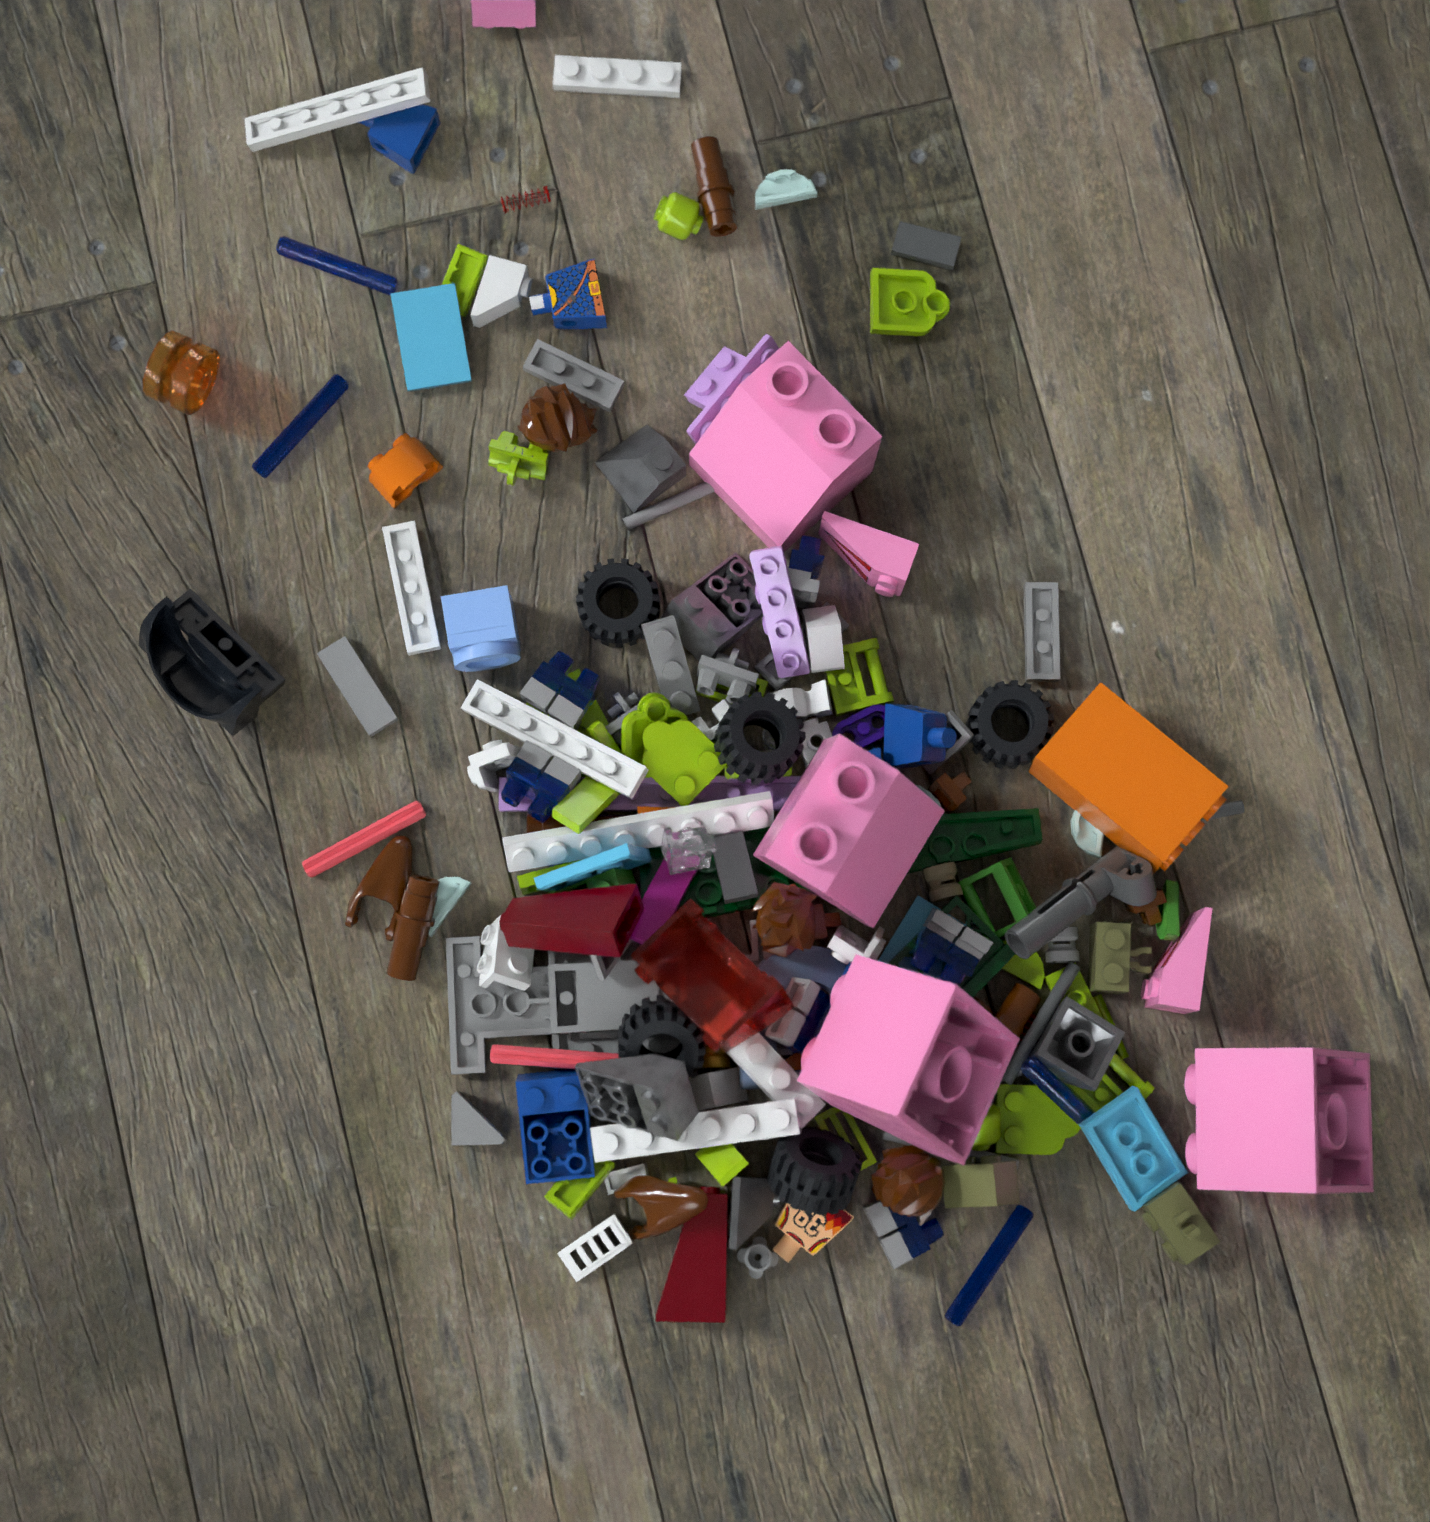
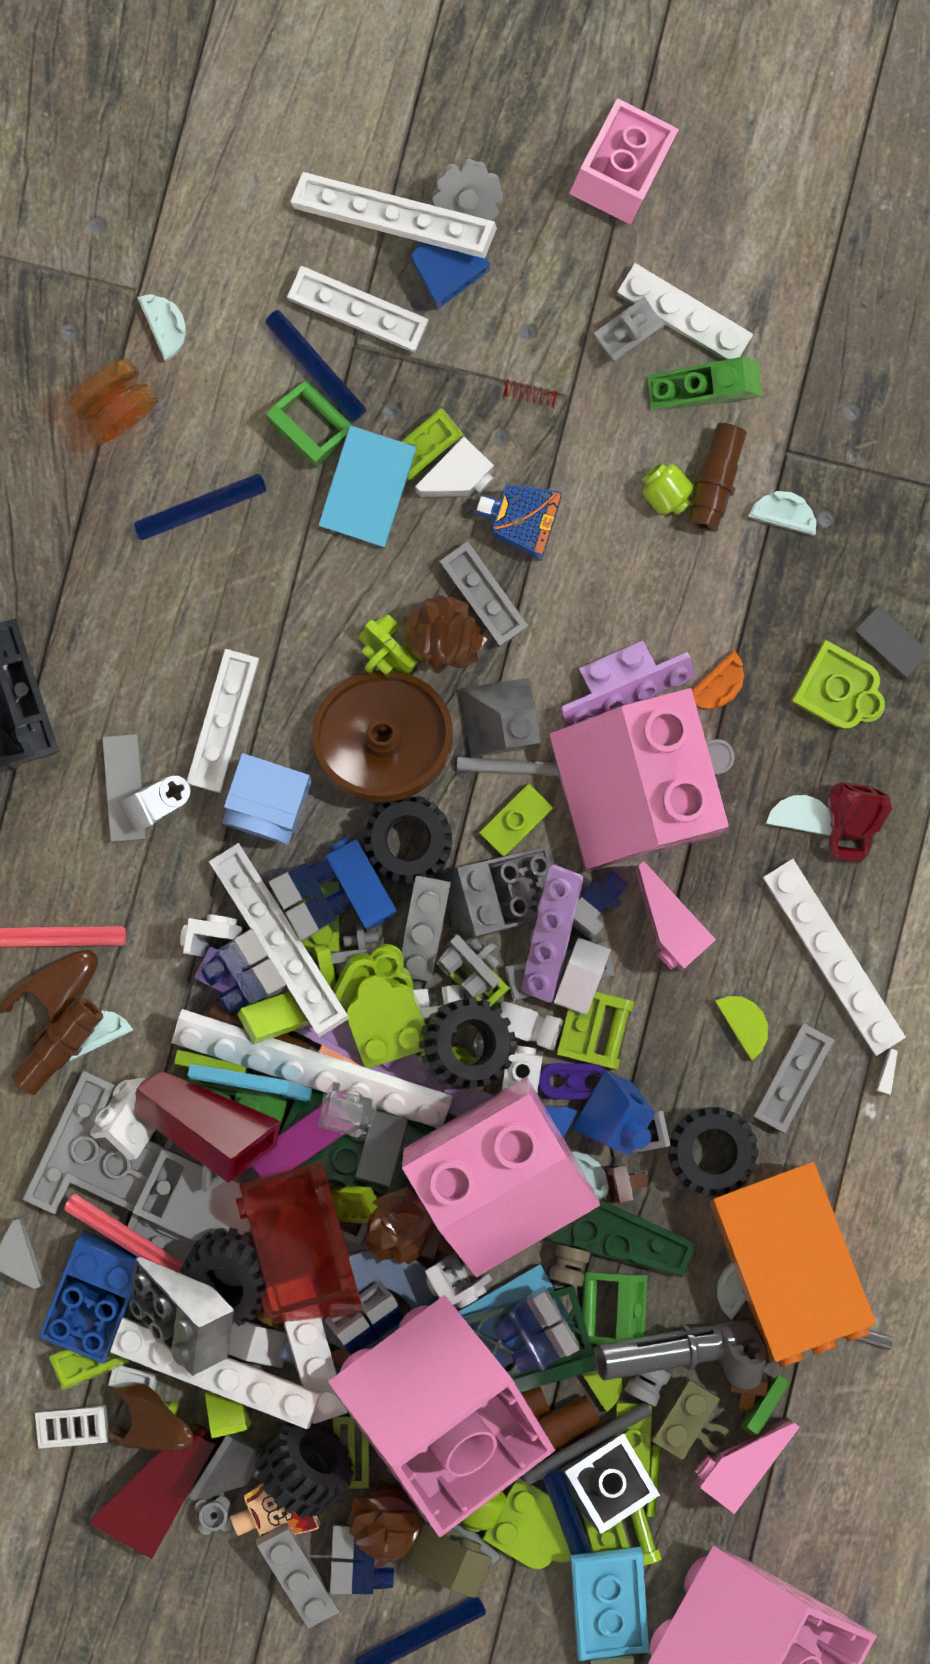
camera: 30 degrees right, 5 degrees up
(194, 295) = (165, 322): none -> light aqua tile
(347, 203) = (357, 309): none -> white plate
(351, 327) = (296, 436): none -> bright green tile
(387, 56) = (468, 190): none -> light grey plant
(387, 683) = (151, 804): none -> piece
(402, 469) = (275, 600): orange cylinder -> none
(551, 529) = (382, 736): none -> reddish brown dish
(578, 107) = (629, 329): none -> light grey hips
(613, 664) = (361, 883): none -> blue slope
(664, 119) = (705, 384): none -> bright green slope
(699, 543) = (516, 820): none -> lime plate
(737, 923) = (353, 1203): none -> lime plate
(810, 342) = (721, 684): none -> orange tile
(857, 1268) = (297, 1575): none -> light grey plate
(931, 417) = (801, 814): none -> light aqua tile
(975, 394) = (855, 814): none -> dark red piece
(978, 608) = (746, 1023): none -> lime tile
(1019, 519) = (834, 957): none -> white plate
(1116, 590) = (887, 1074): none -> white piece

